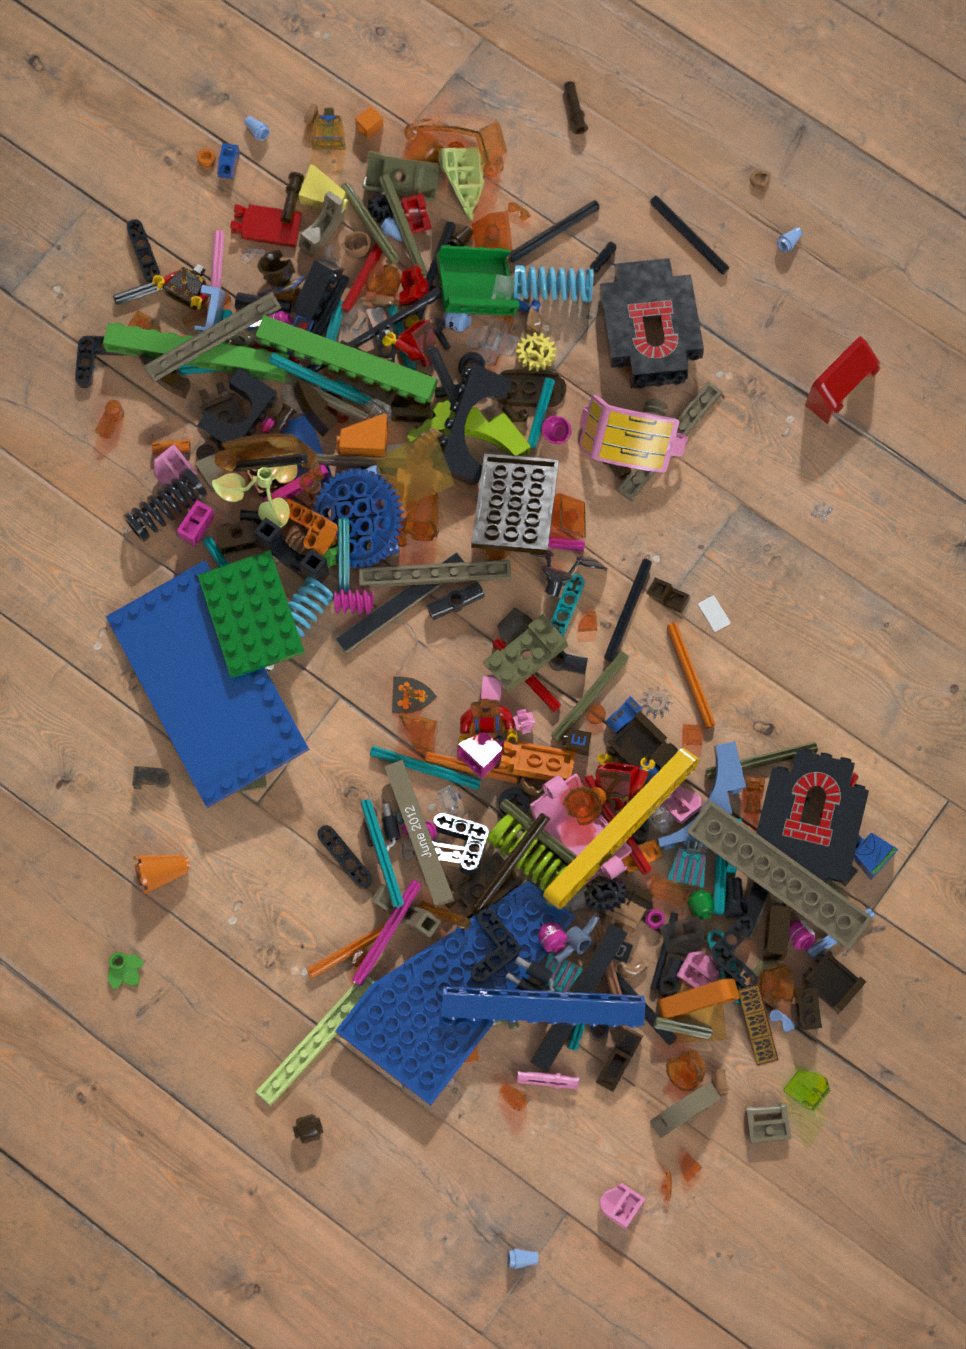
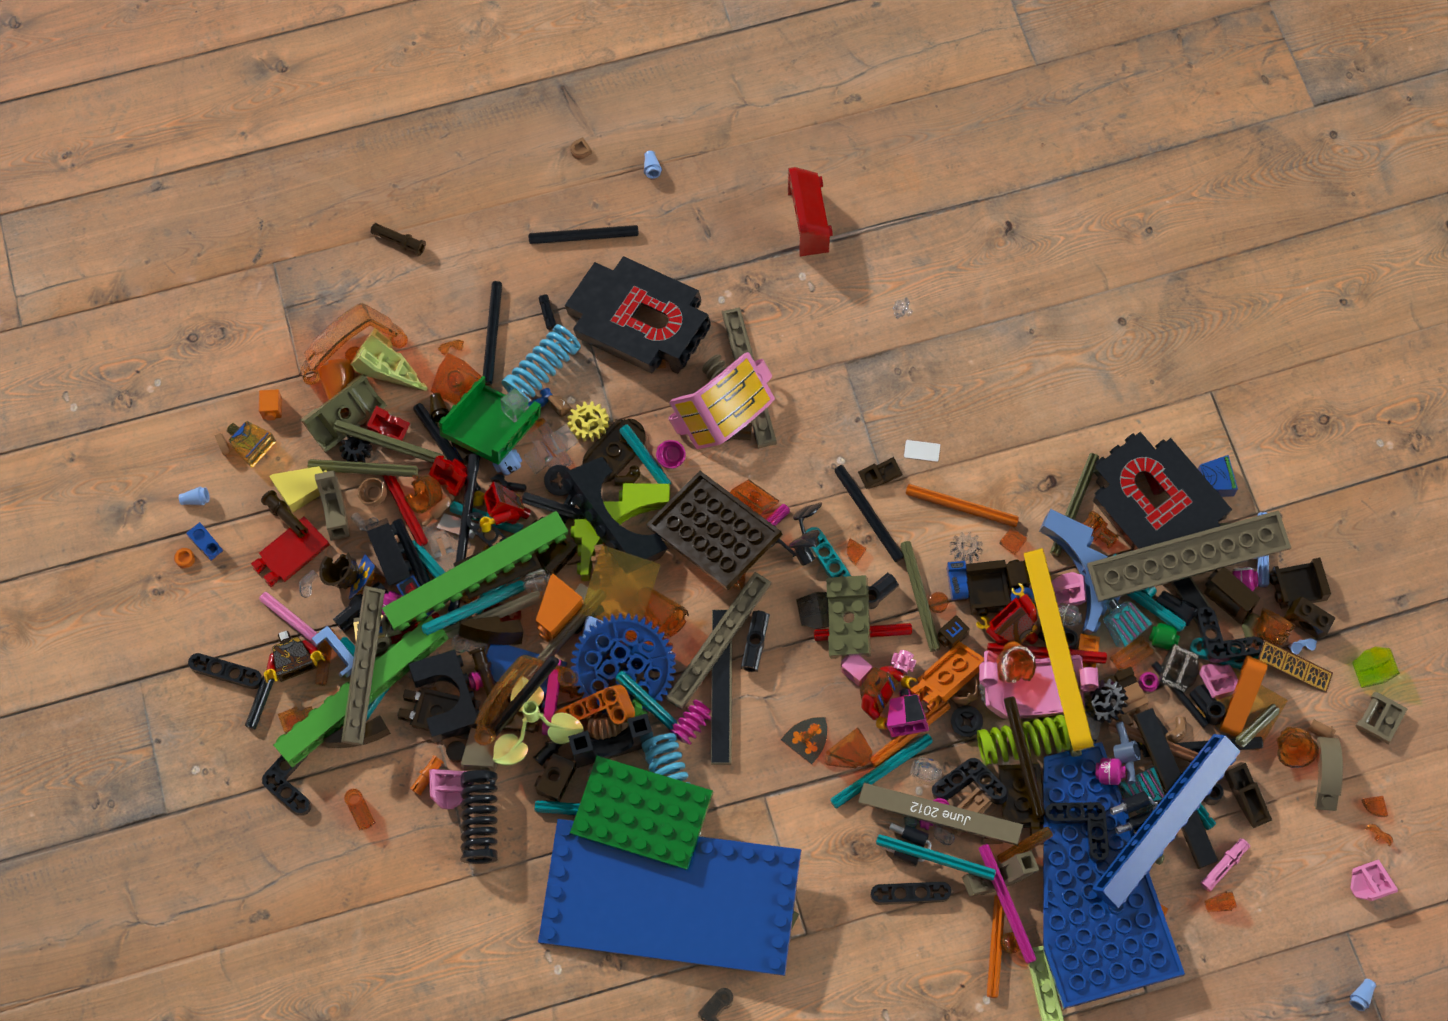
camera: 50 degrees left, 5 degrees down
(196, 523) = (517, 803): dark pink brick -> none
(390, 228) = (381, 454): light blue cone -> none
(545, 837) = (1002, 719): olive axle -> none

